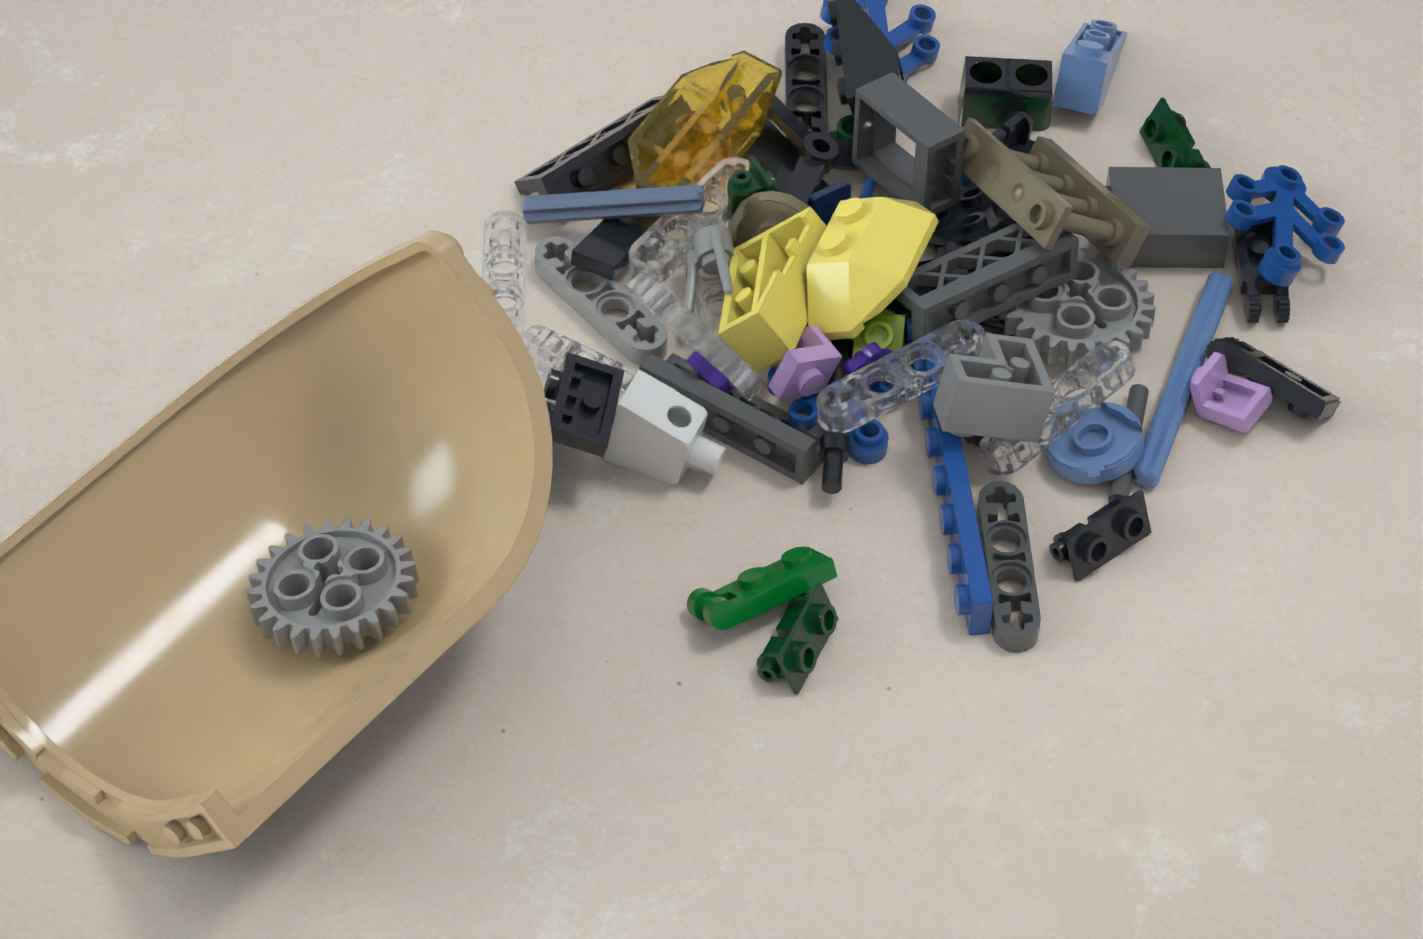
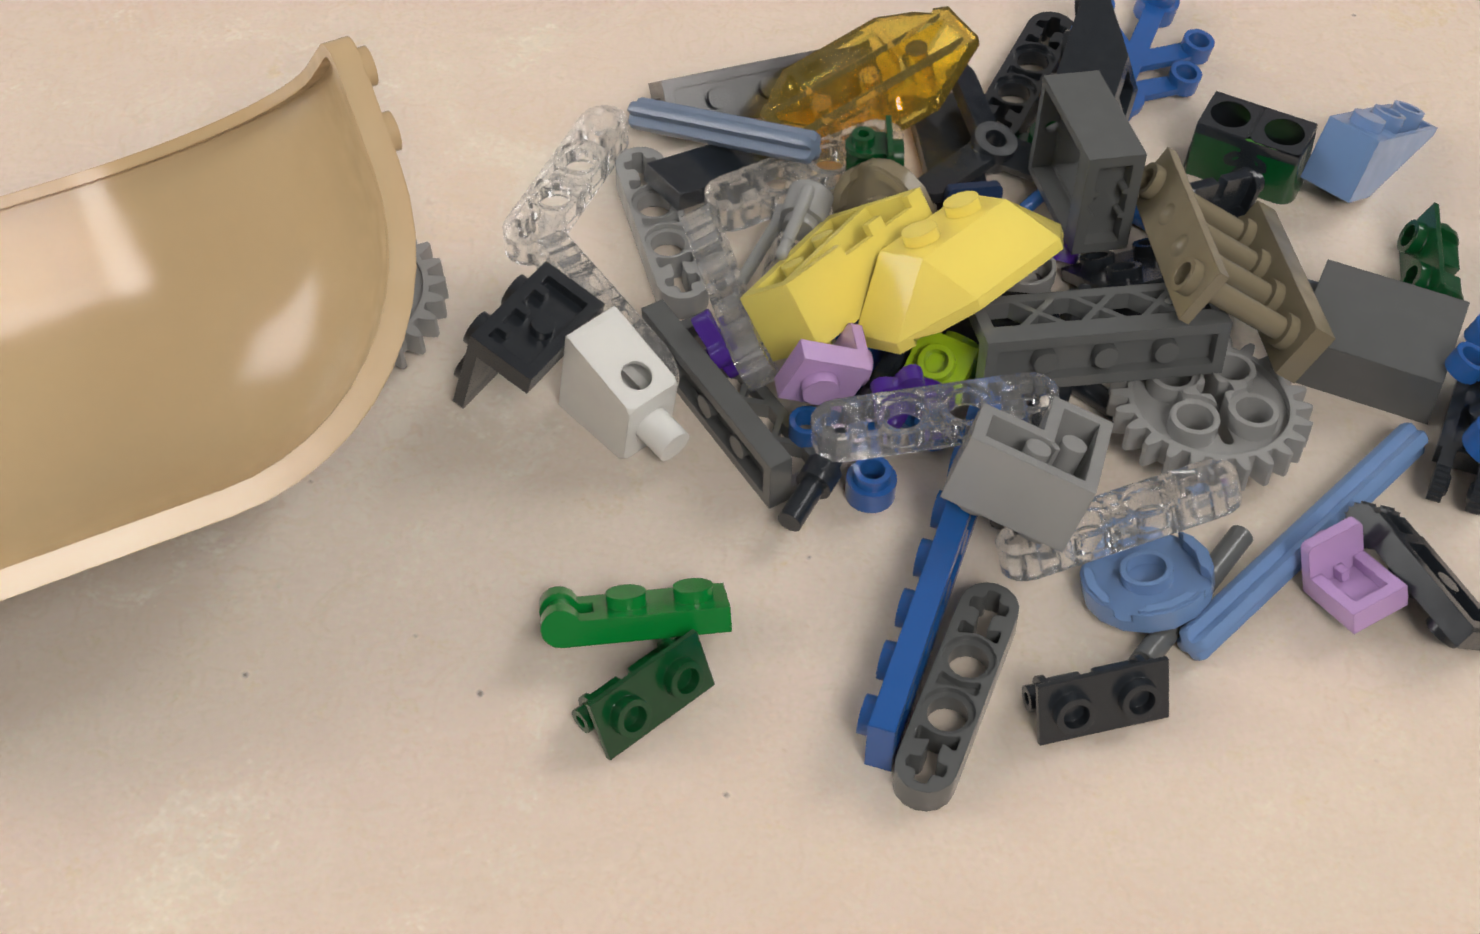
camera: 25 degrees right, 0 degrees up
(333, 586) = (142, 438): light grey gear -> none

